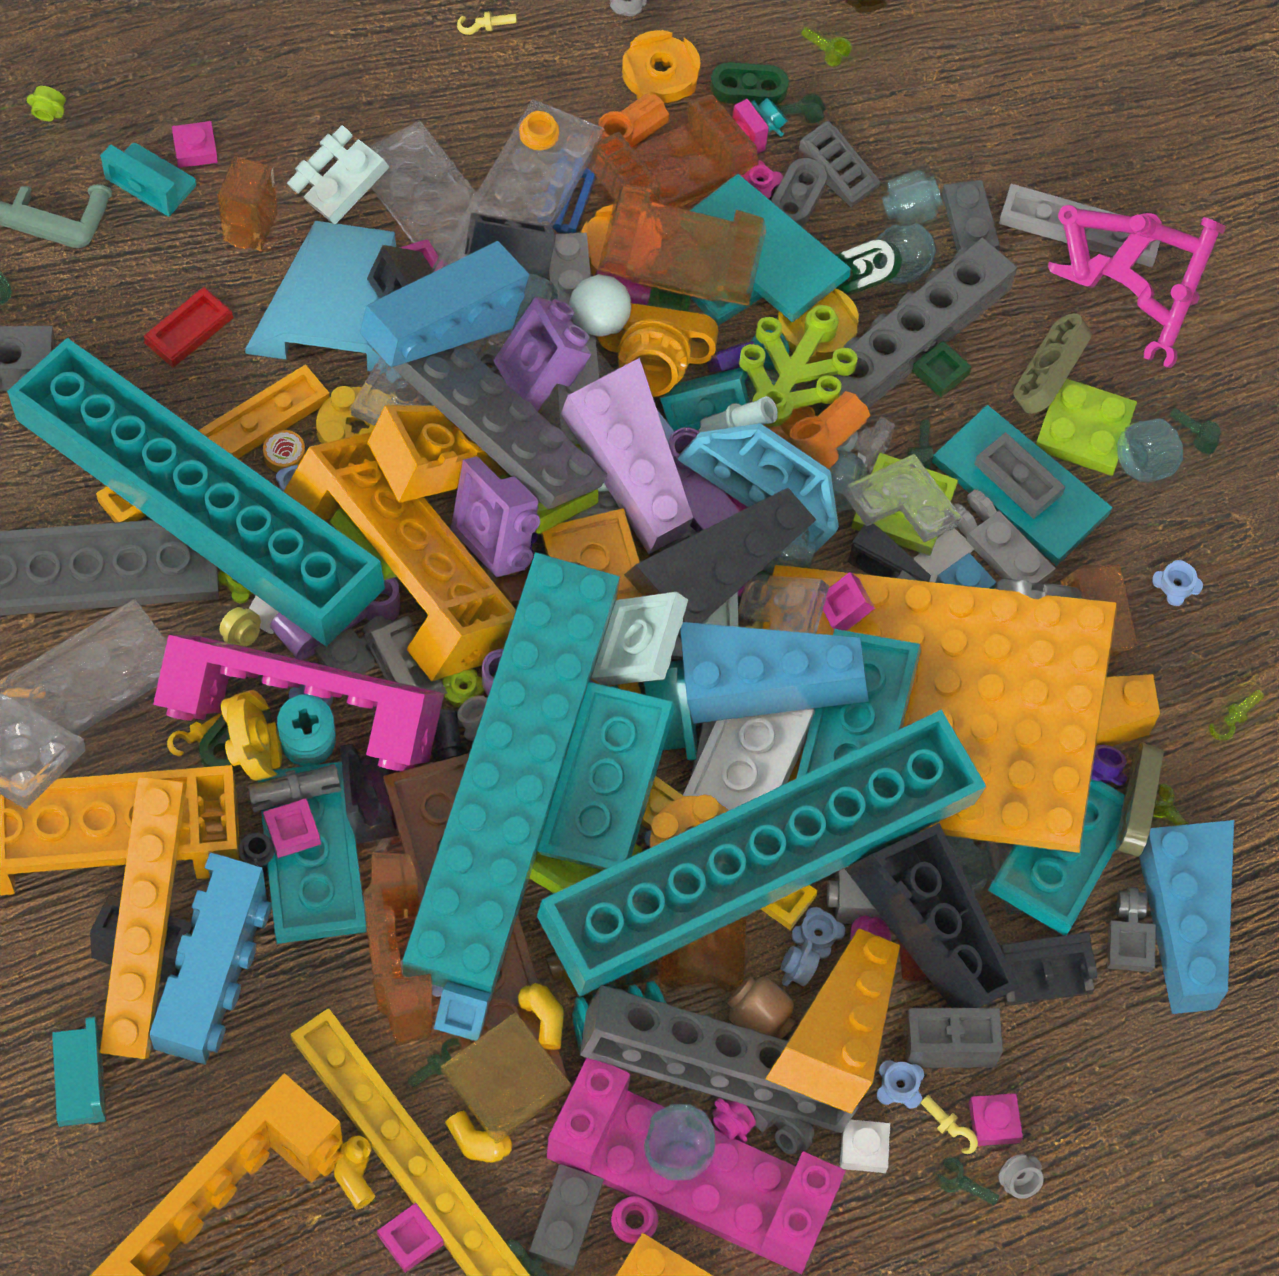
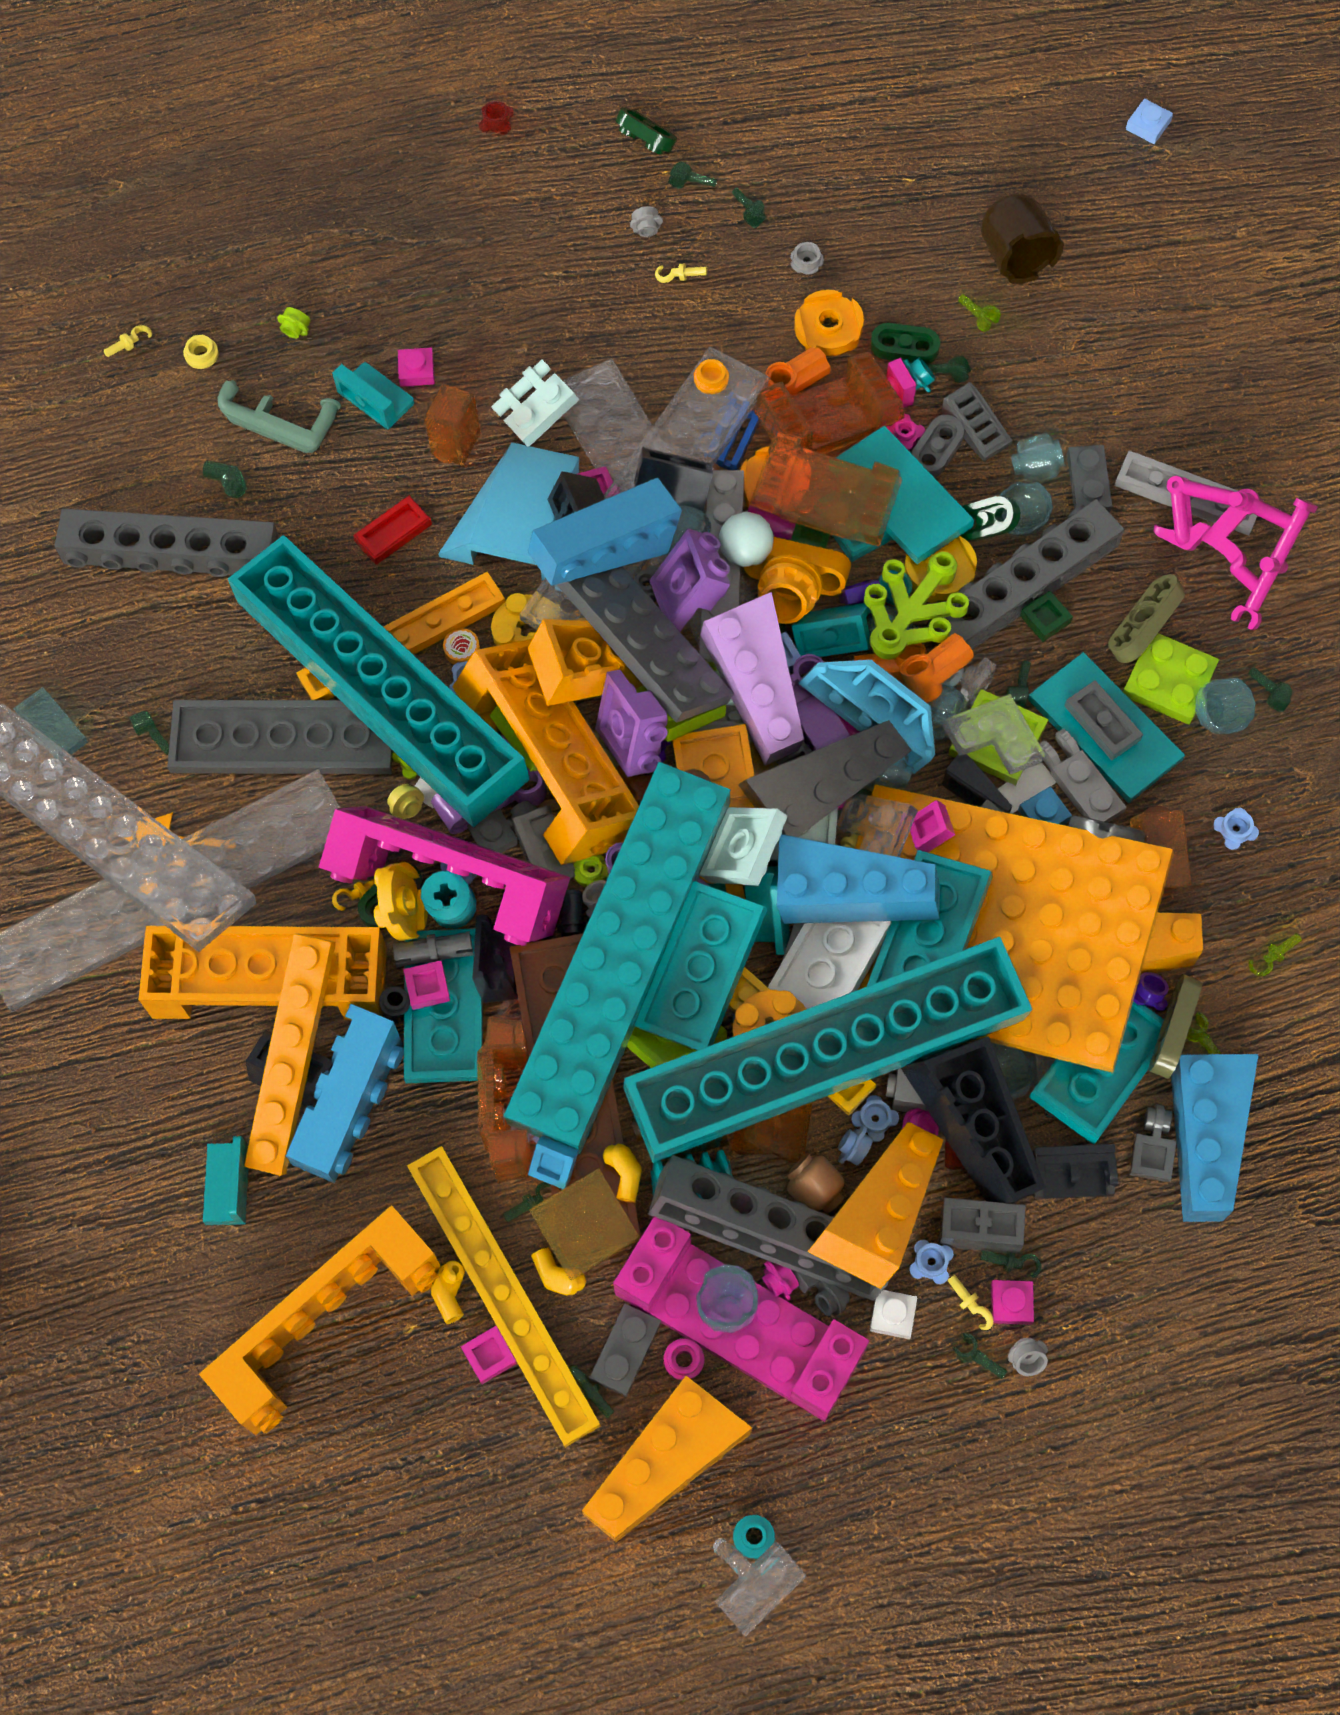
camera: 15 degrees right, 5 degrees up
(755, 412) = (858, 649): light aqua axle -> none
(987, 1075) = (1009, 1260): none -> clear green hand

